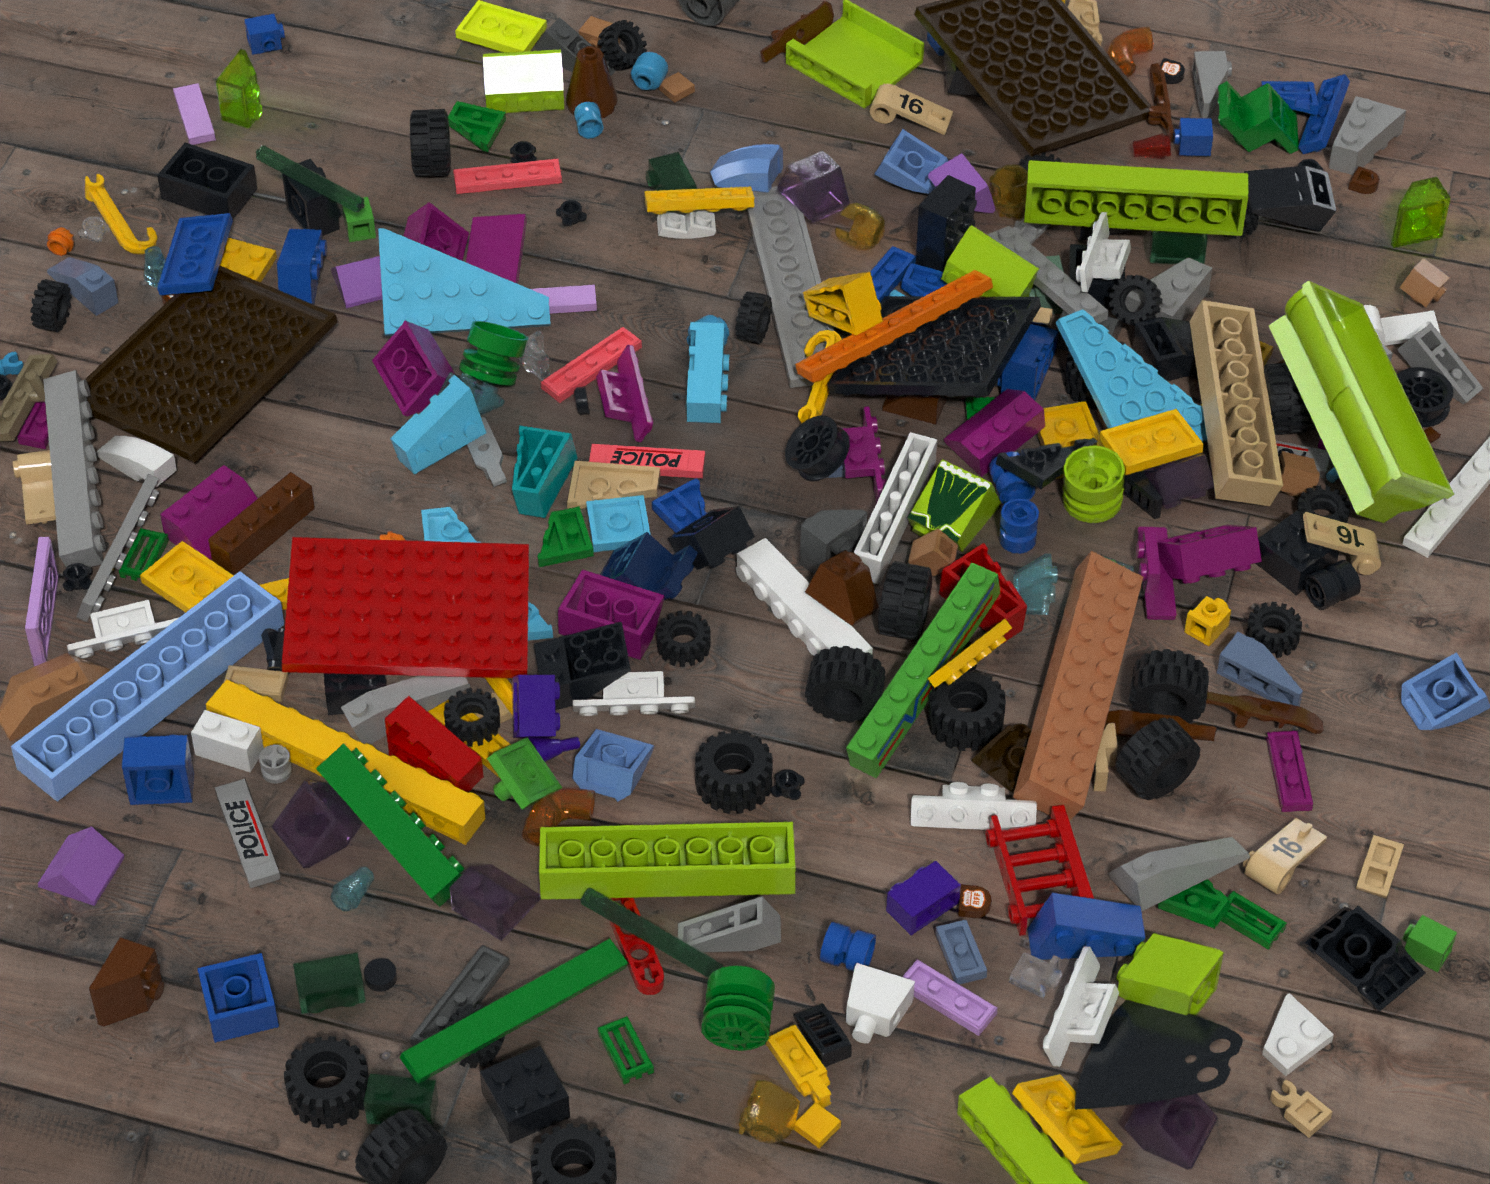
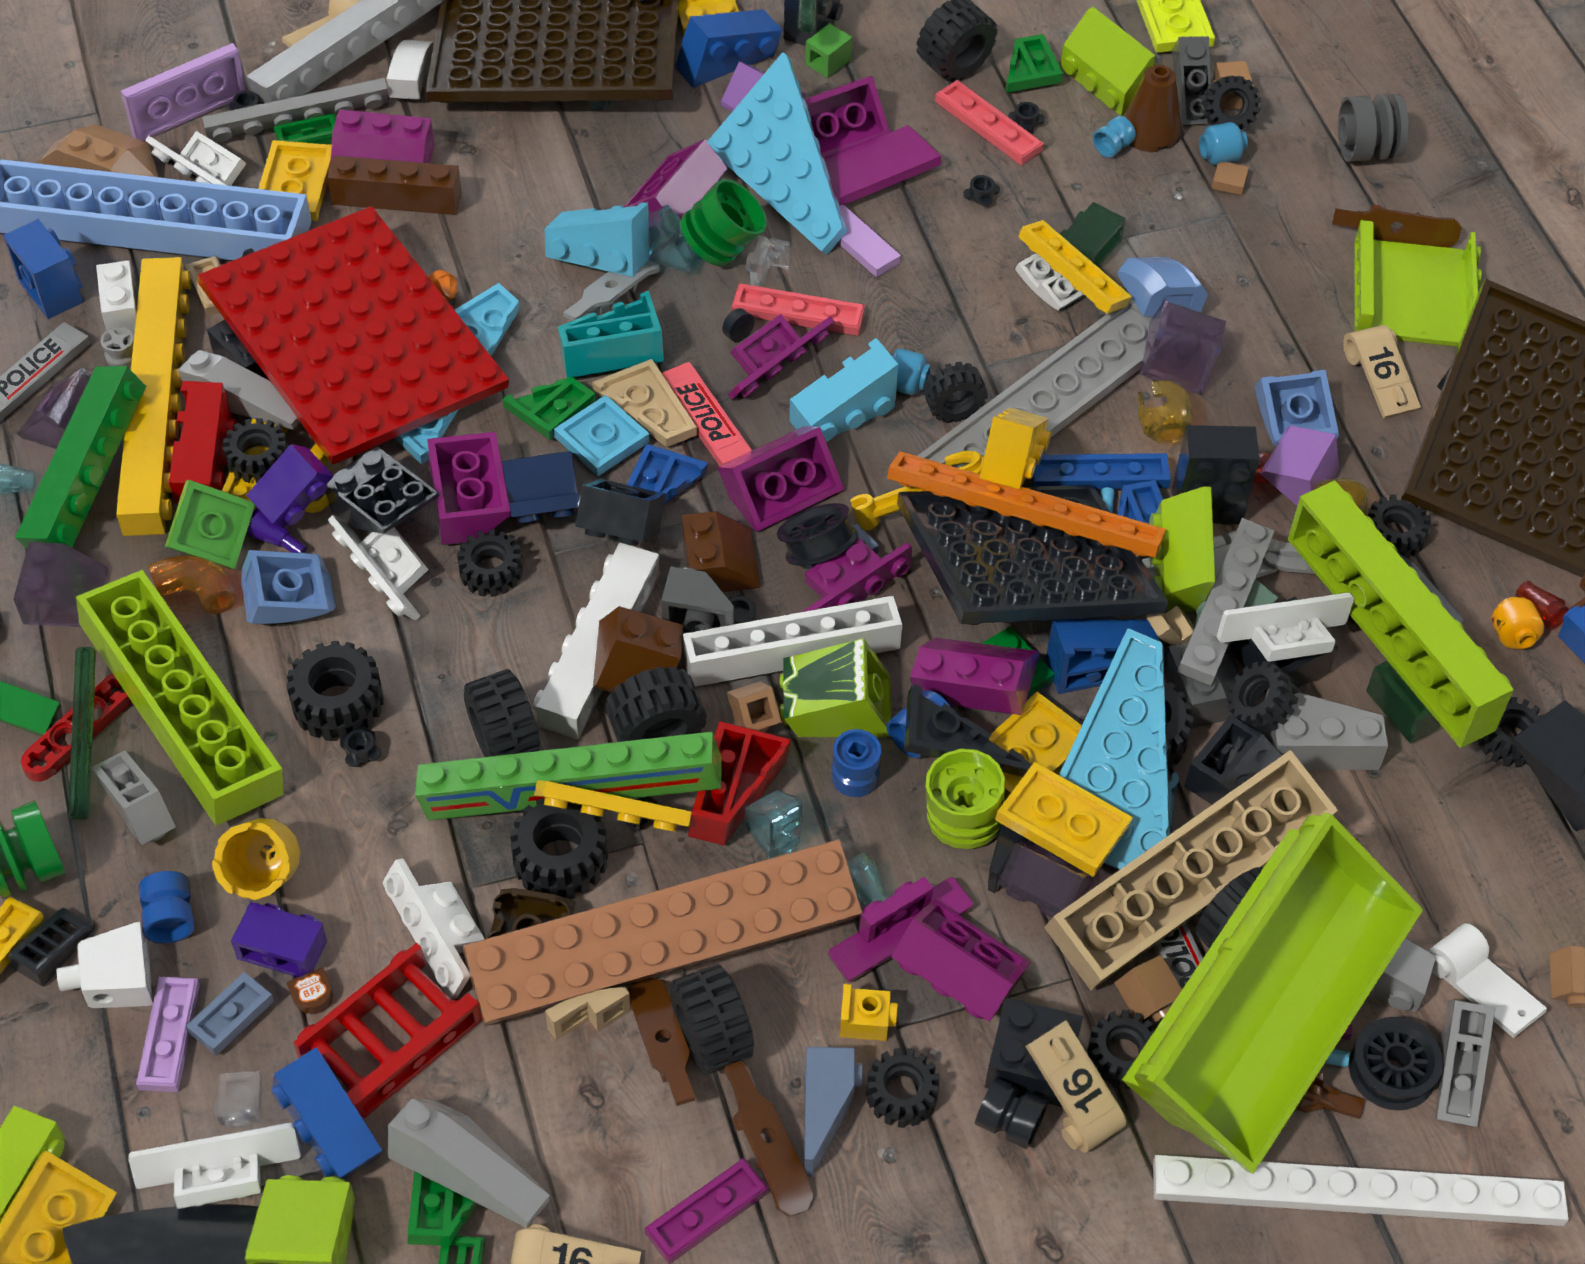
camera: 55 degrees right, 5 degrees up
(741, 445) = (781, 477): none -> magenta slope
(778, 515) = (721, 550): none -> reddish brown slope
(859, 868) = (244, 867): none -> yellow cylinder
(1158, 758) = (599, 1059): black tyre -> none
(1160, 158) = (1517, 623): none -> light orange head

